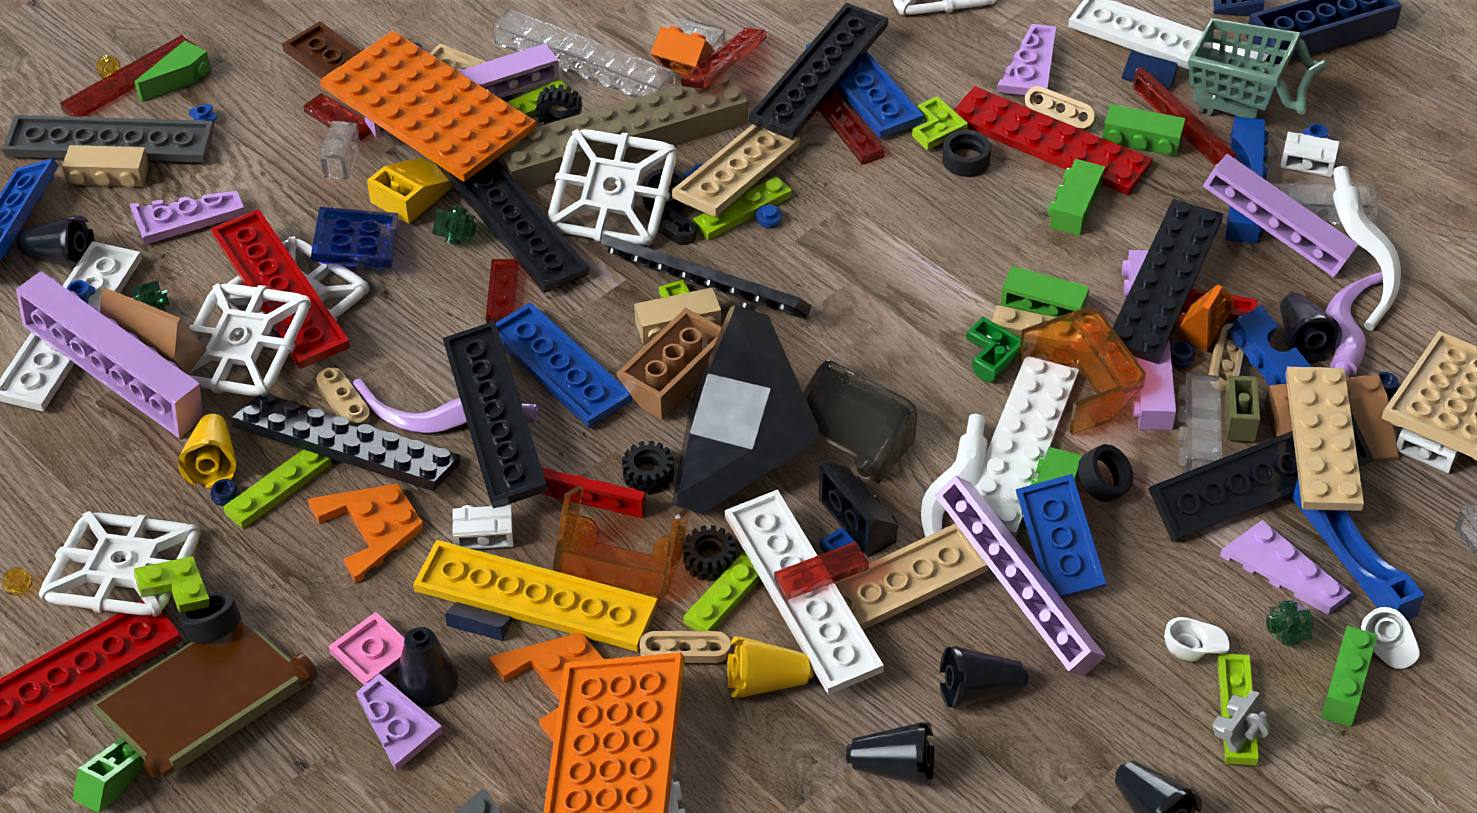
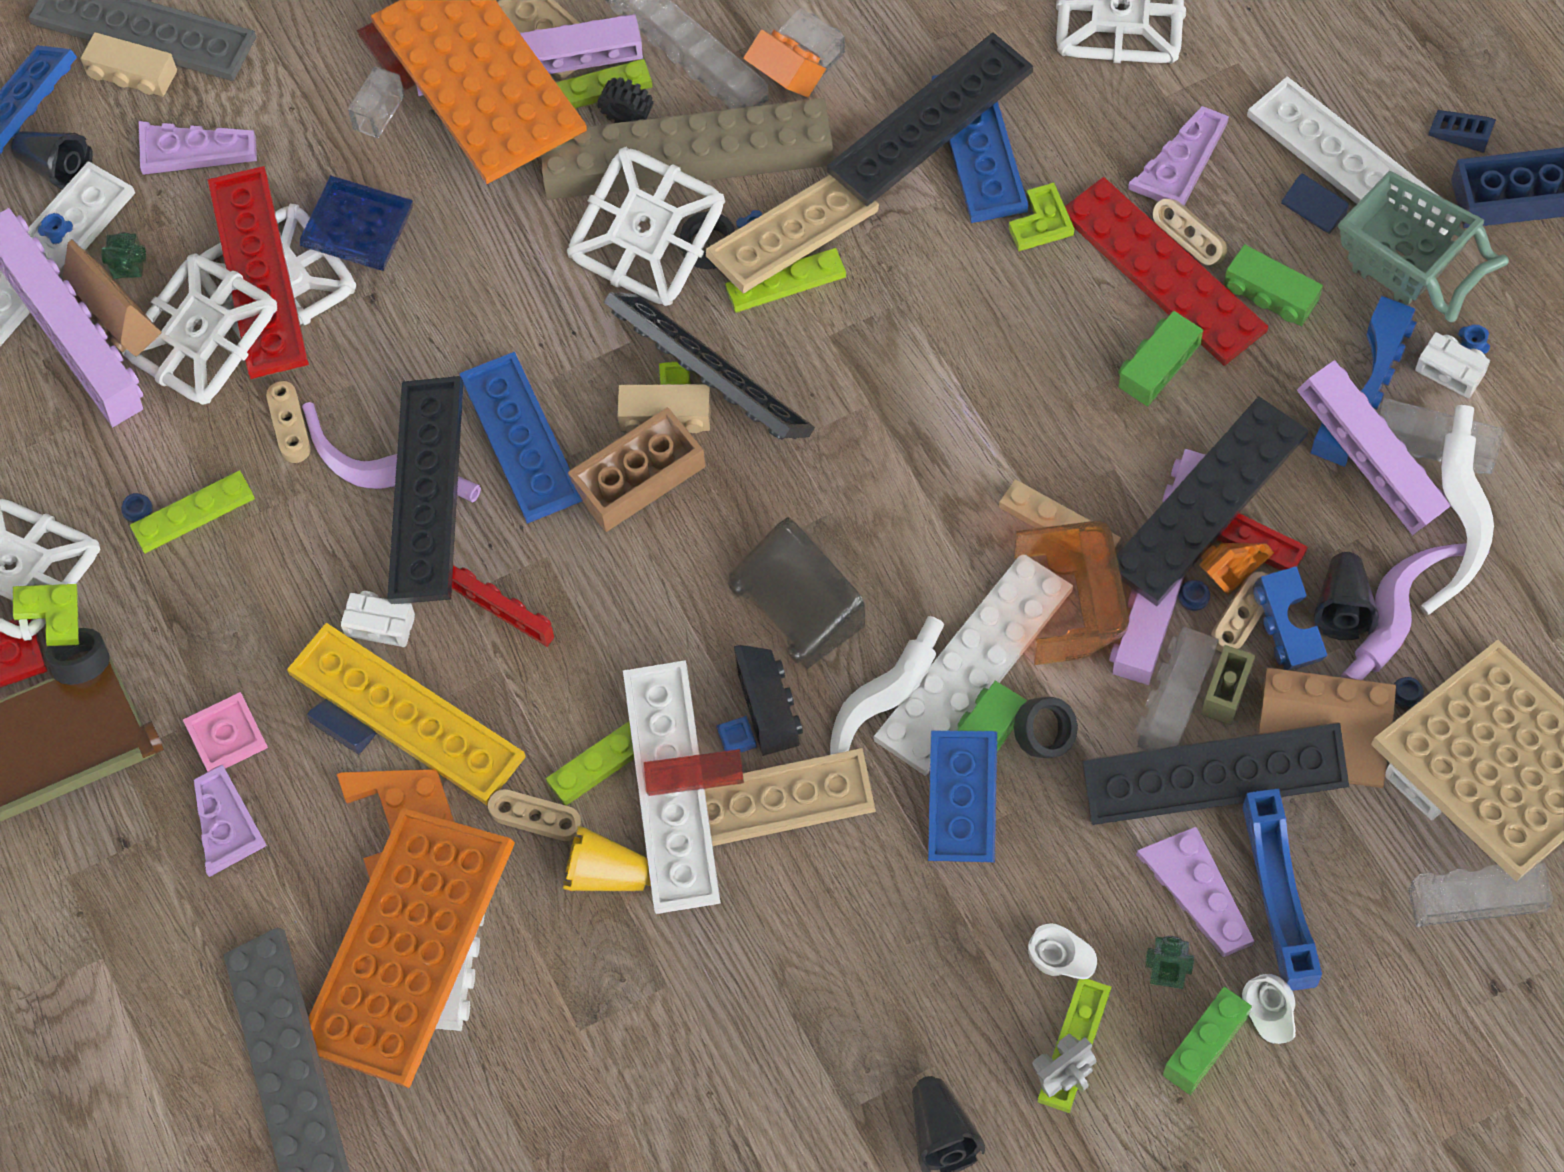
camera: 20 degrees right, 15 degrees up
(203, 113) = (254, 21): blue plate -> none
(208, 453) = (131, 456): yellow cone -> none
(347, 441) = (274, 479): black plate -> none
(380, 515) = (284, 581): orange wing -> none
(407, 187) = (431, 170): yellow slope -> none
(425, 669) = (268, 775): black cone -> none
(454, 225) = (465, 232): clear green brick -> none
(501, 289) = (493, 324): clear red tile -> none
(521, 227) = (536, 253): black plate -> none
(583, 557) = (494, 697): clear orange windscreen -> none
(648, 455) = (574, 605): black tyre -> none
(675, 225) = (708, 284): black beam -> none
(708, 540) = (591, 694): black tyre -> none
(723, 58) = (827, 79): clear red tile -> none
(742, 415) = (676, 572): black panel -> none
(769, 216) = (810, 298): blue plate -> none
(851, 129) = (943, 202): clear red tile -> none
(895, 754) = (701, 1001): black cone -> none
(966, 140) = (1058, 287): black tyre -> none
(978, 676) = (818, 936): black cone -> none
(999, 348) = (995, 539): green brick -> none
(1020, 576) = (902, 830): lavender brick -> none
(1042, 293) = (1071, 481): bright green brick -> none
(1194, 130) = (1321, 273): clear red tile -> none
(1324, 439) = (1293, 754): tan plate -> none

